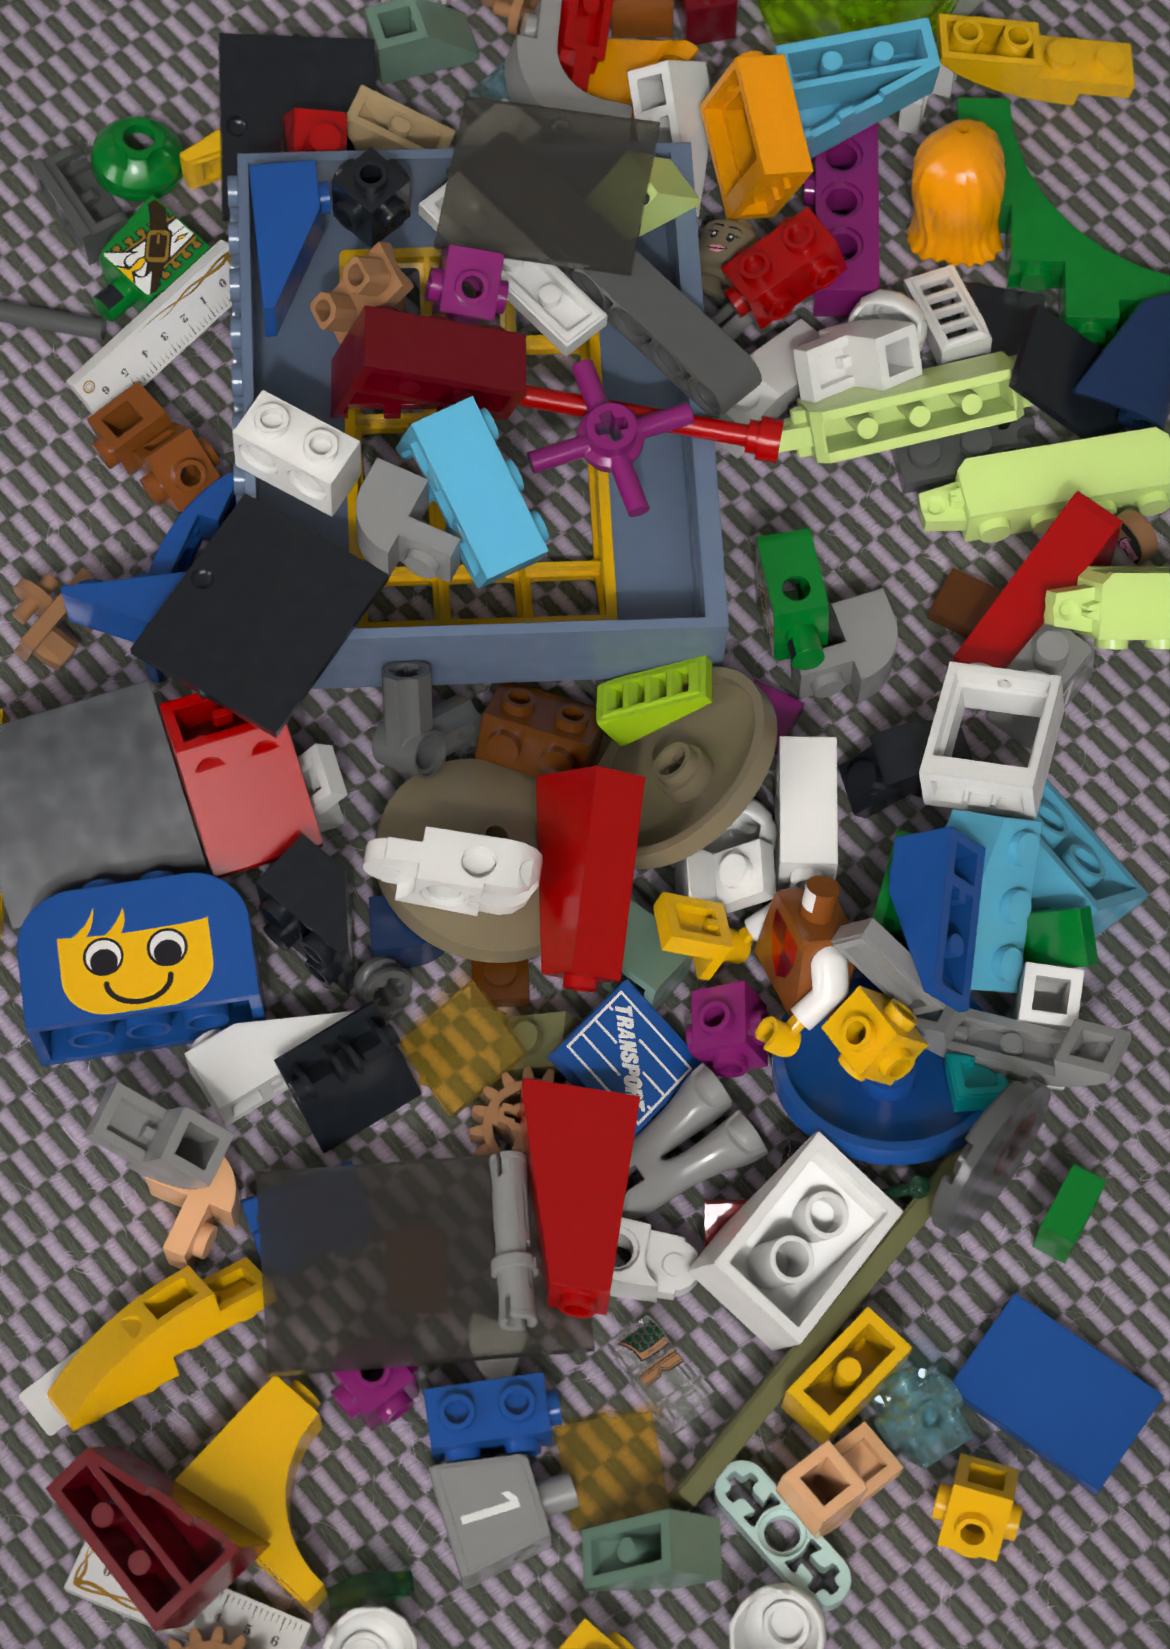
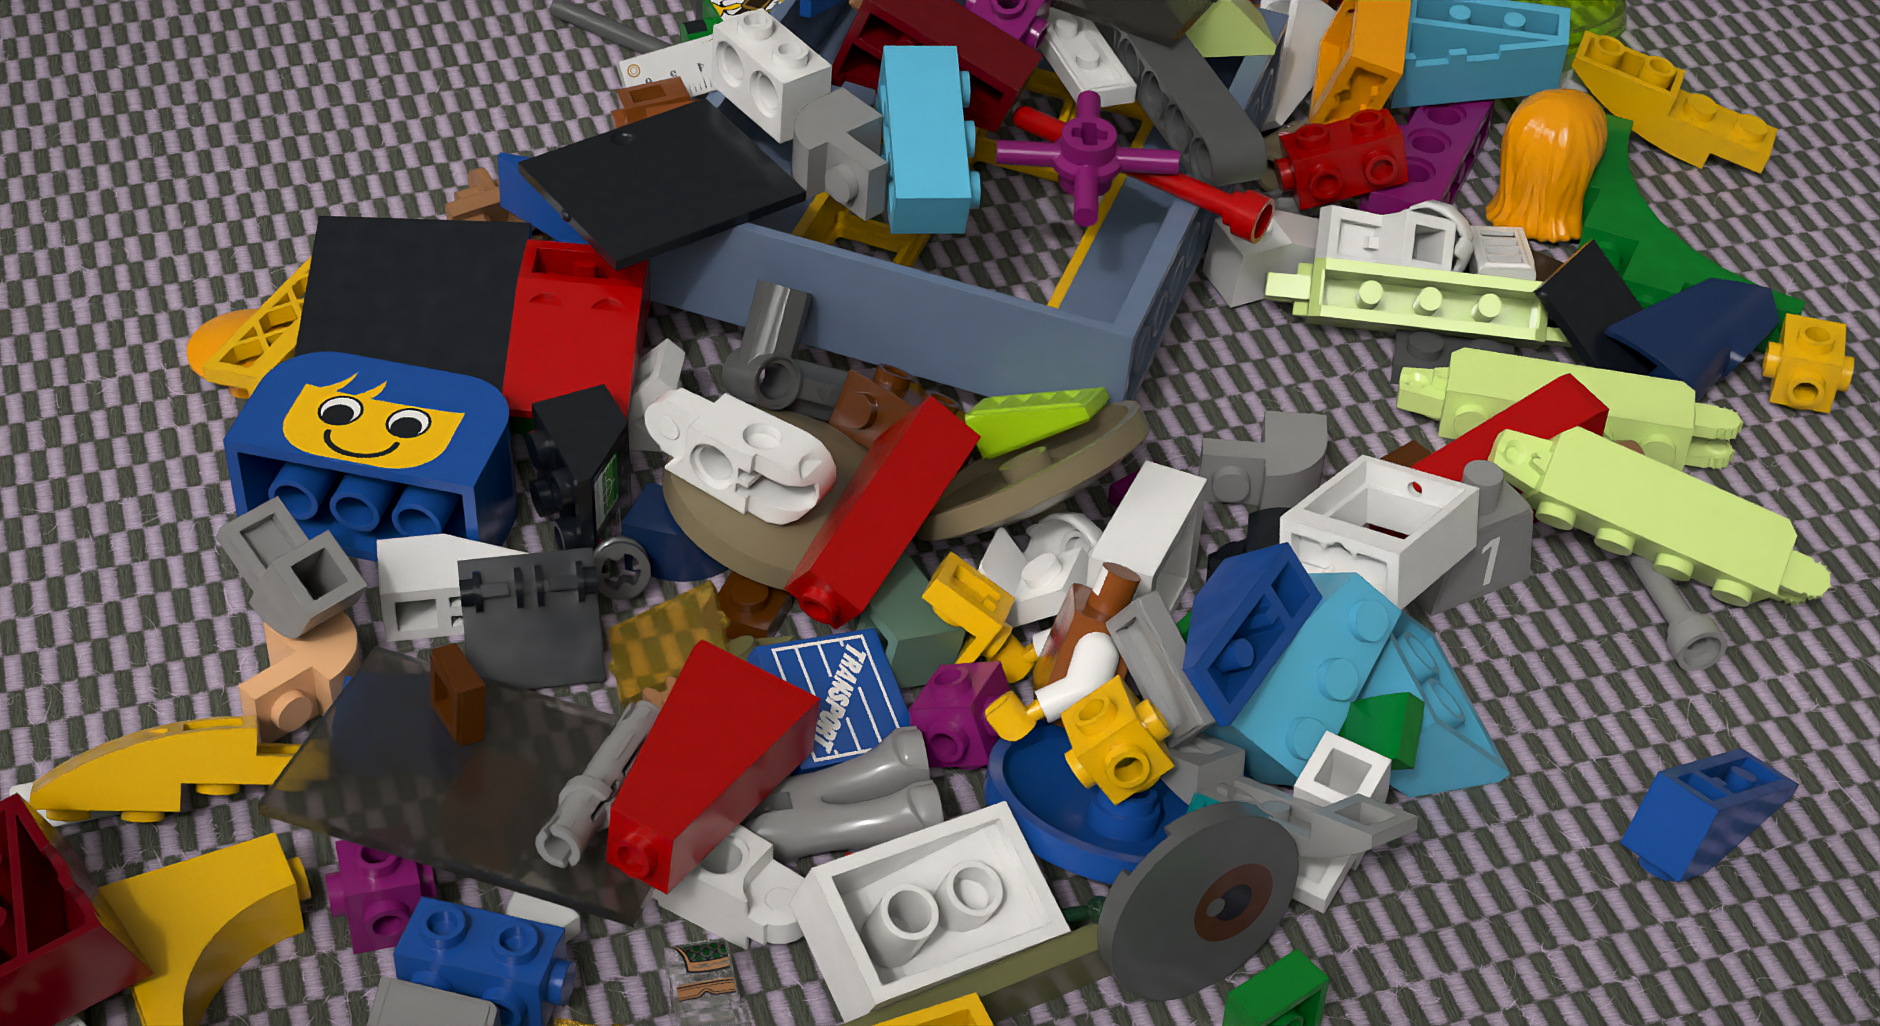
camera: 20 degrees right, 25 degrees down
(362, 1208) = (457, 694): none -> reddish brown tile
(798, 618) = (1220, 398): green torso -> none

